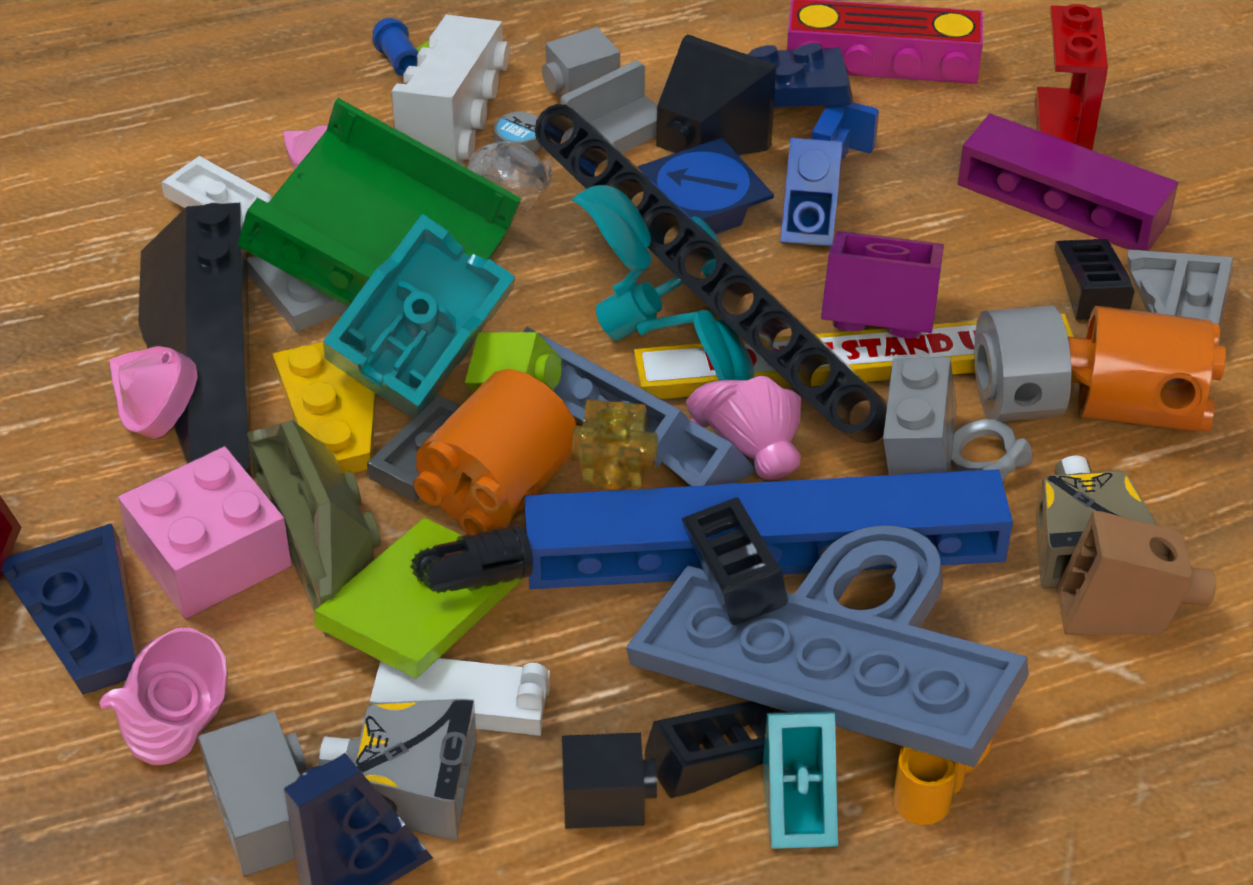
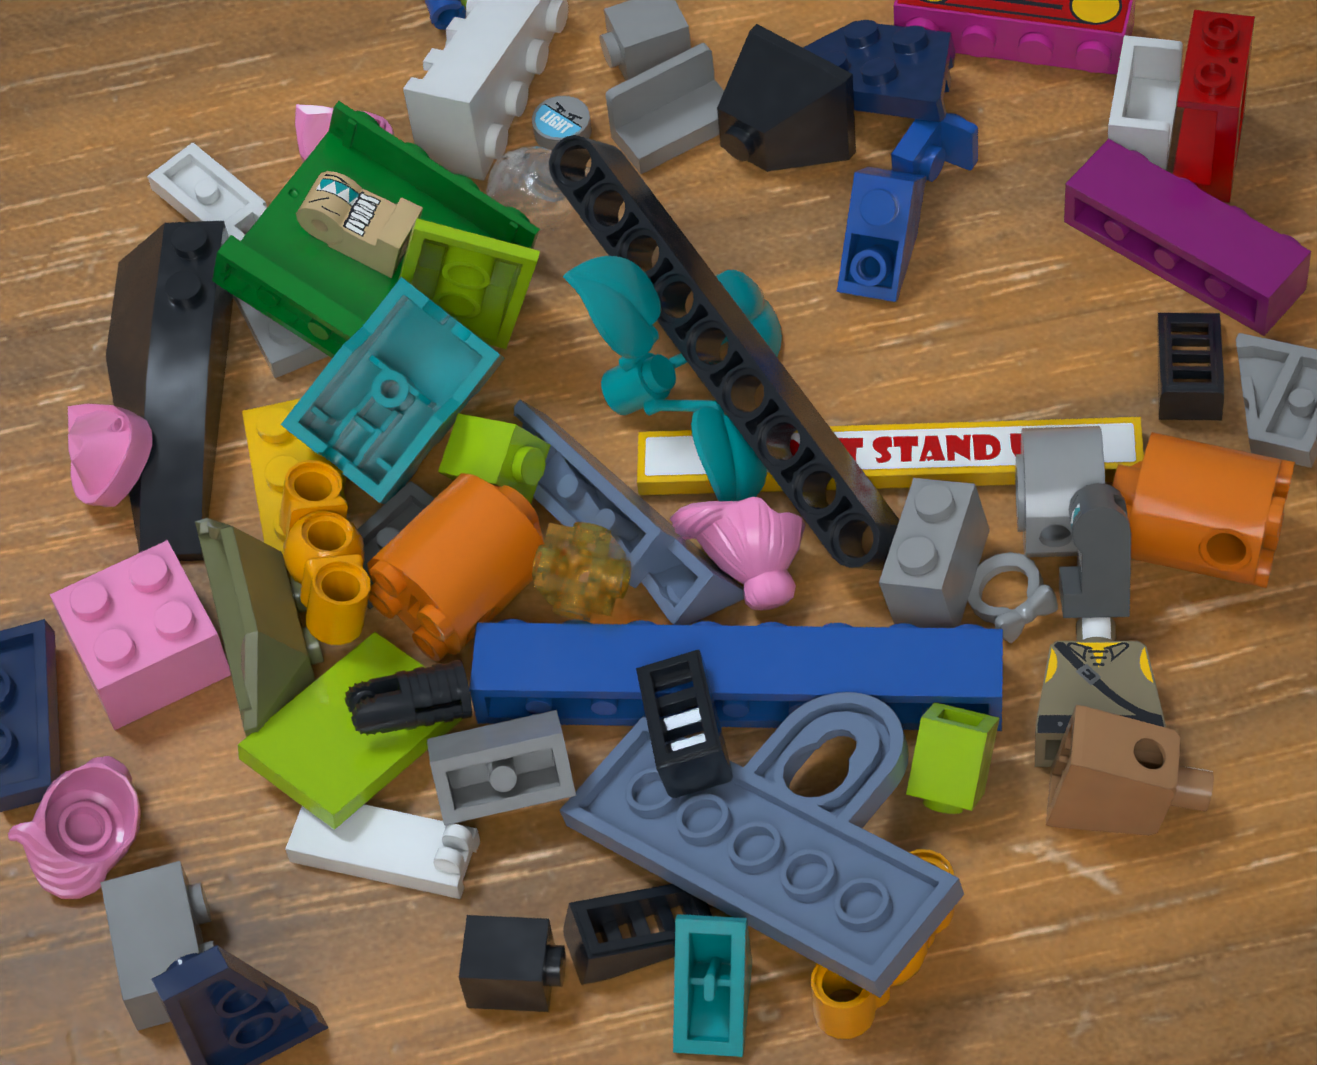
camera: 15 degrees right, 10 degrees up
(364, 194) = (358, 221): none -> tan leg
(374, 447) = (324, 552): none -> light orange piece
(415, 759) = (315, 925): light grey torso -> none
(478, 208) = (470, 277): none -> lime slope
(567, 613) = (500, 767): none -> light grey brick
(709, 183) = (758, 214): piece -> none
(882, 283) = (926, 372): magenta brick -> none
(978, 577) = (952, 758): none -> lime brick
(1006, 84) = (1146, 97): none -> white panel
(1074, 403) = (1103, 570): none -> dark grey leg

